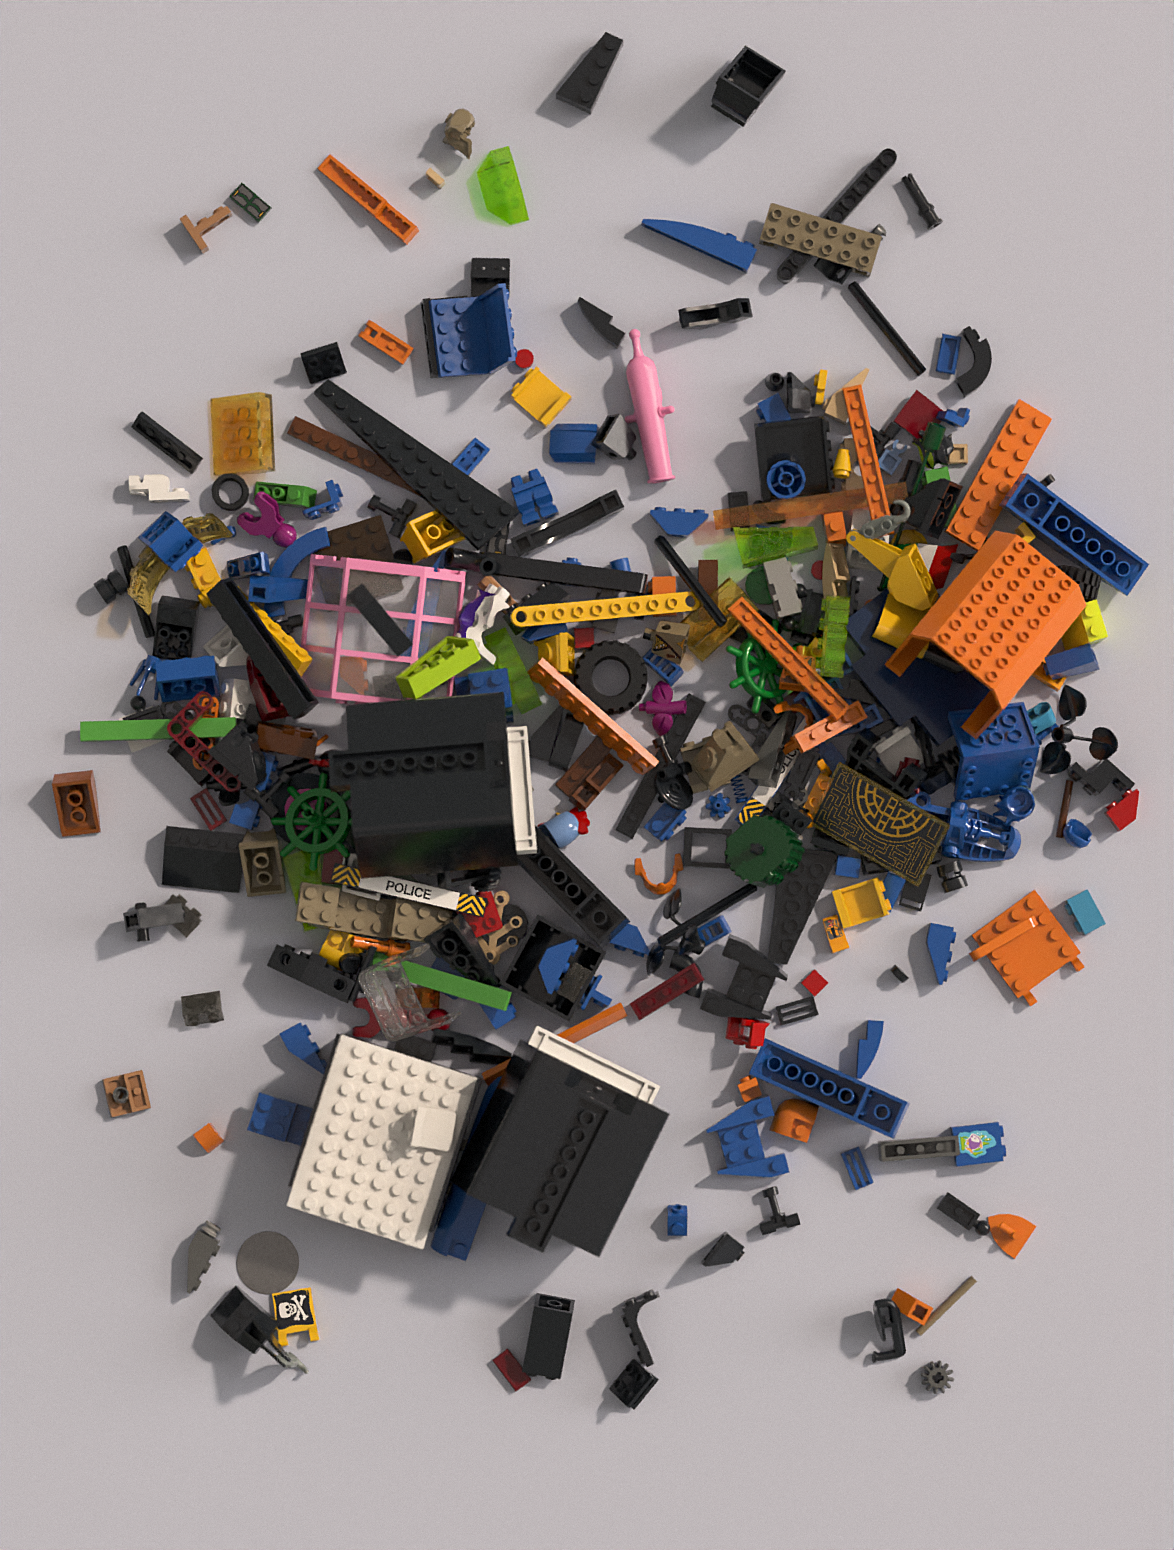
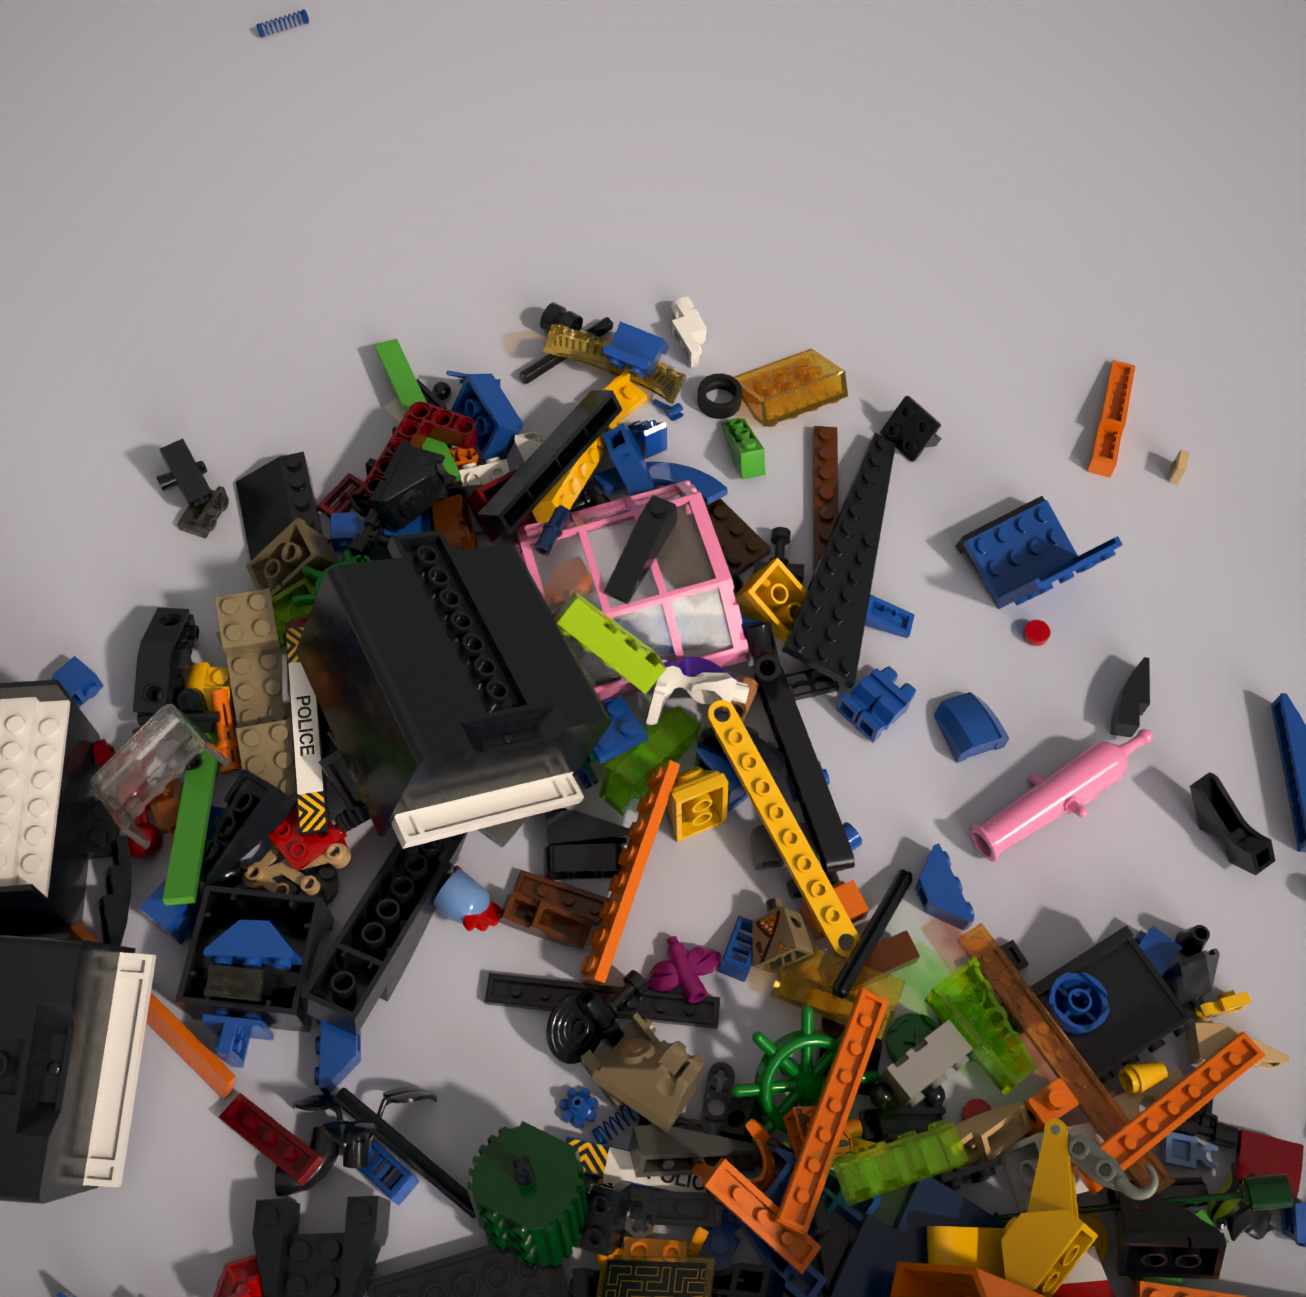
camera: 65 degrees right, 25 degrees down
(76, 803) = (304, 368): dark orange slope -> none
(167, 442) = (743, 323): black plate -> none
(175, 628) = (545, 393): black slope -> none
(202, 1008) = (90, 569): clear smoke bracket -> none
(205, 225) = (990, 283): medium nougat bracket -> none
(250, 202) = (1037, 315): tile -> none
(269, 523) = (706, 437): magenta piece -> none
(331, 506) = (757, 488): blue bracket -> none
(334, 672) = (552, 530): none -> dark blue axle
(386, 342) = (969, 486): orange plate -> none
(457, 129) = (1247, 467): dark tan head -> none
(488, 273) = (1113, 570): black bracket -> none
(502, 187) = (1212, 539): clear neon green wedge -> none
(540, 397) = (1003, 665): yellow panel -> none
(568, 524) = (901, 780): black arch -> none
(584, 637) = (732, 832): red tile -> none
(612, 651) = (701, 846): black tyre -> none
(615, 438) = (1004, 766): black torso -> none
(661, 888) = (426, 1068): orange helmet -> none
(664, 821) = (524, 1037): blue bracket -> none
(687, 851) = (501, 1084): black window -> none
(959, 454) = (1249, 1255): tan tile -> none

